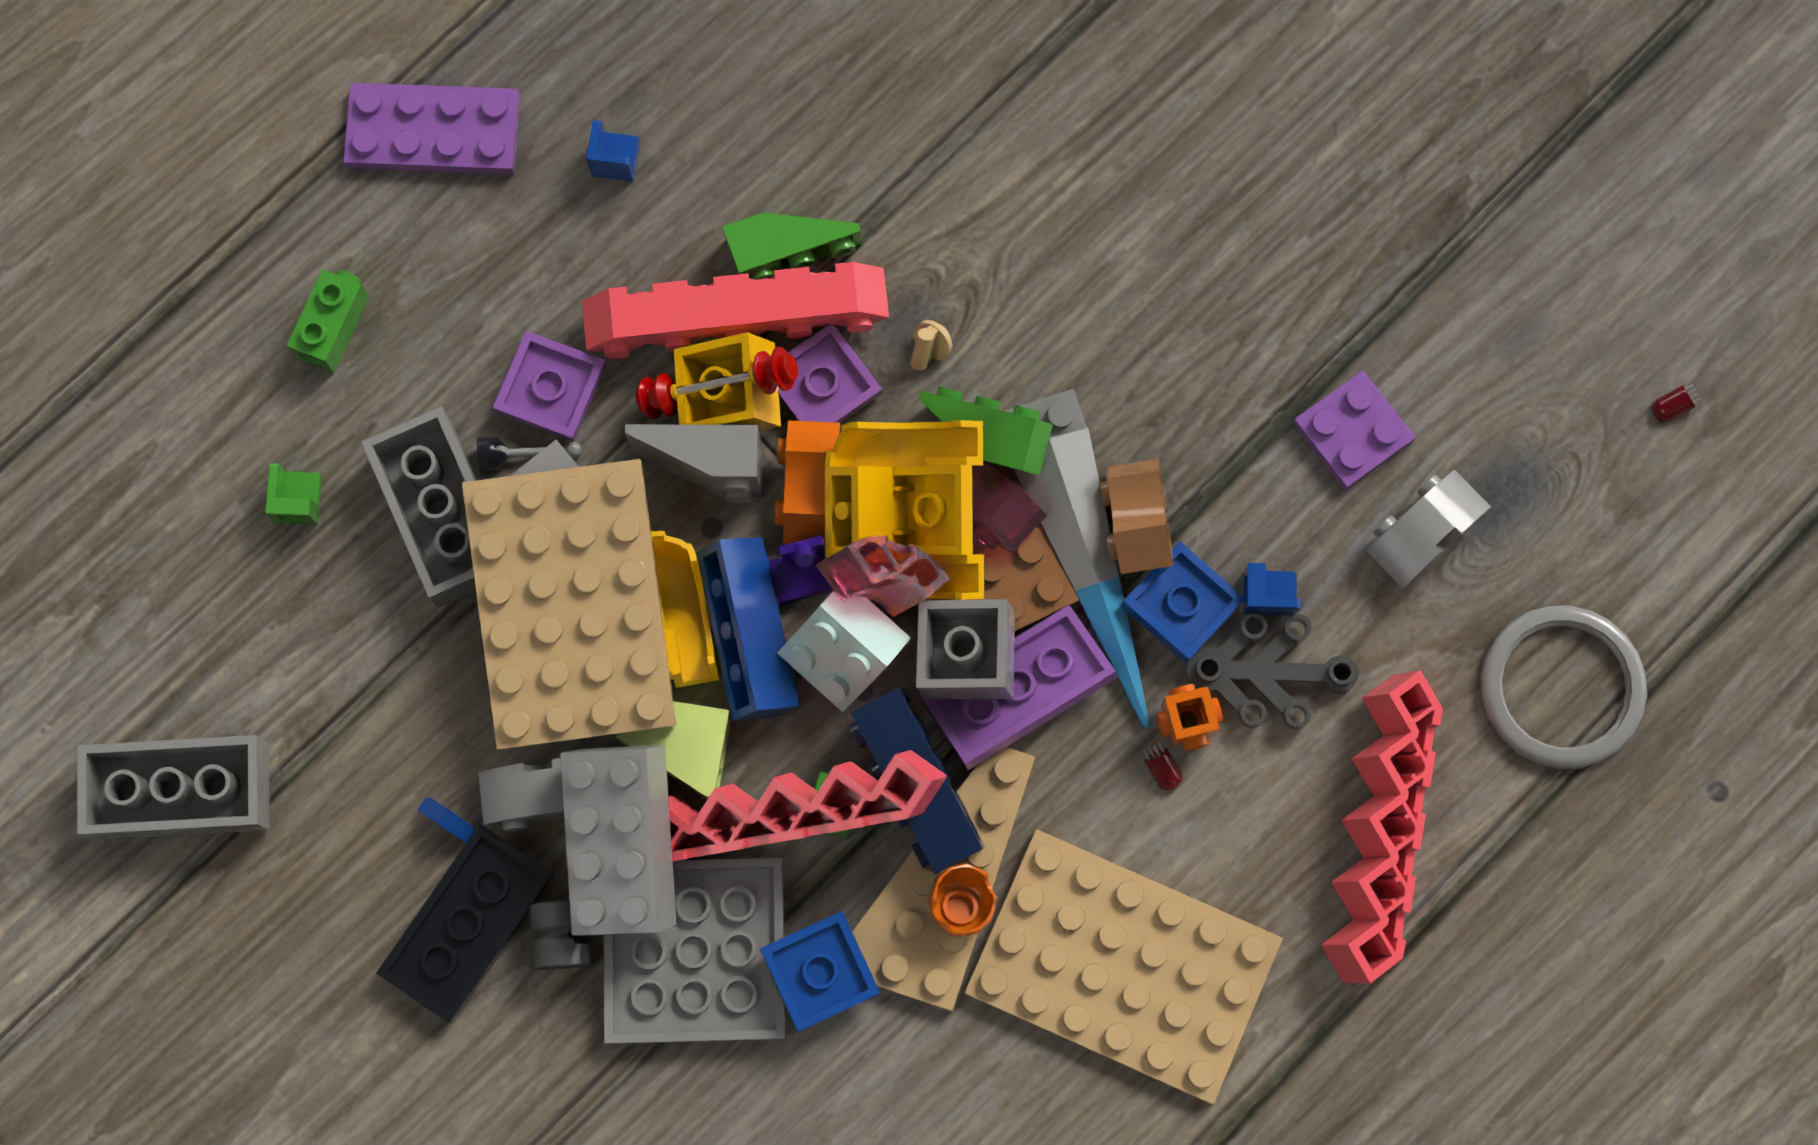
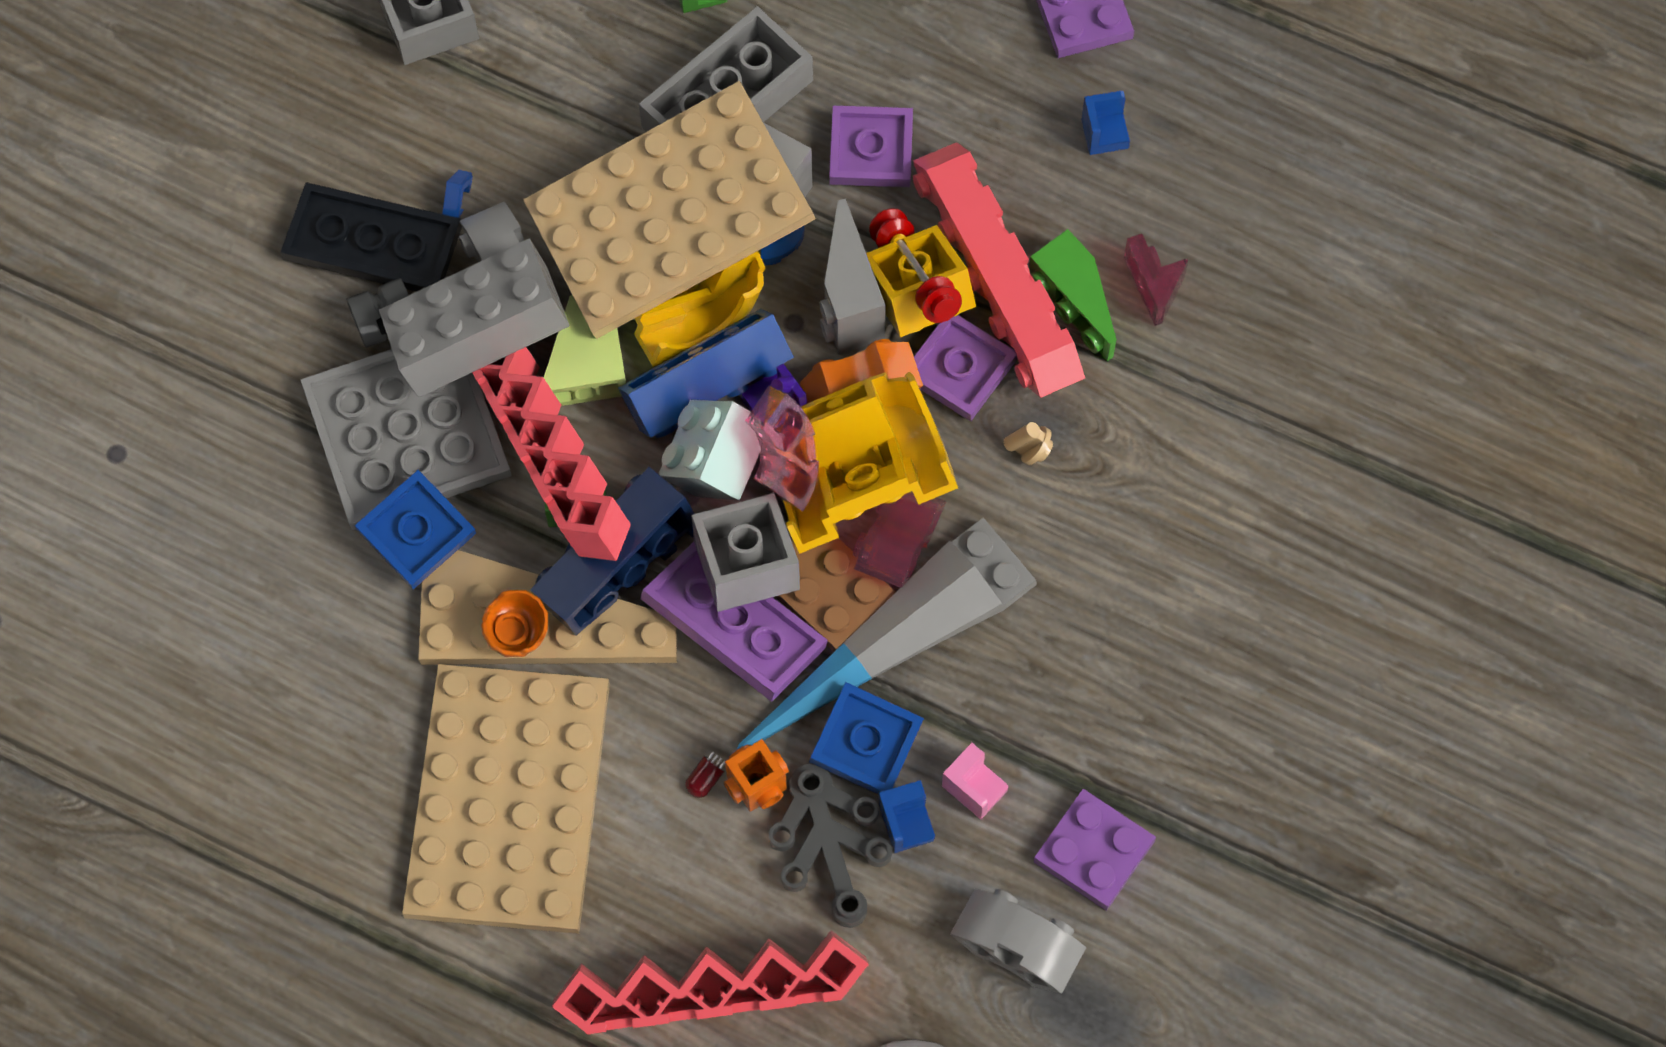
camera: 70 degrees right, 10 degrees down
(493, 453) = (793, 122): hinge -> none
(808, 170) = (1155, 283): none -> clear pink slope
(1008, 438) = (959, 518): bright green slope -> none
(1138, 515) = (931, 671): medium nougat brick -> none
(1255, 516) = (973, 782): none -> bright pink panel

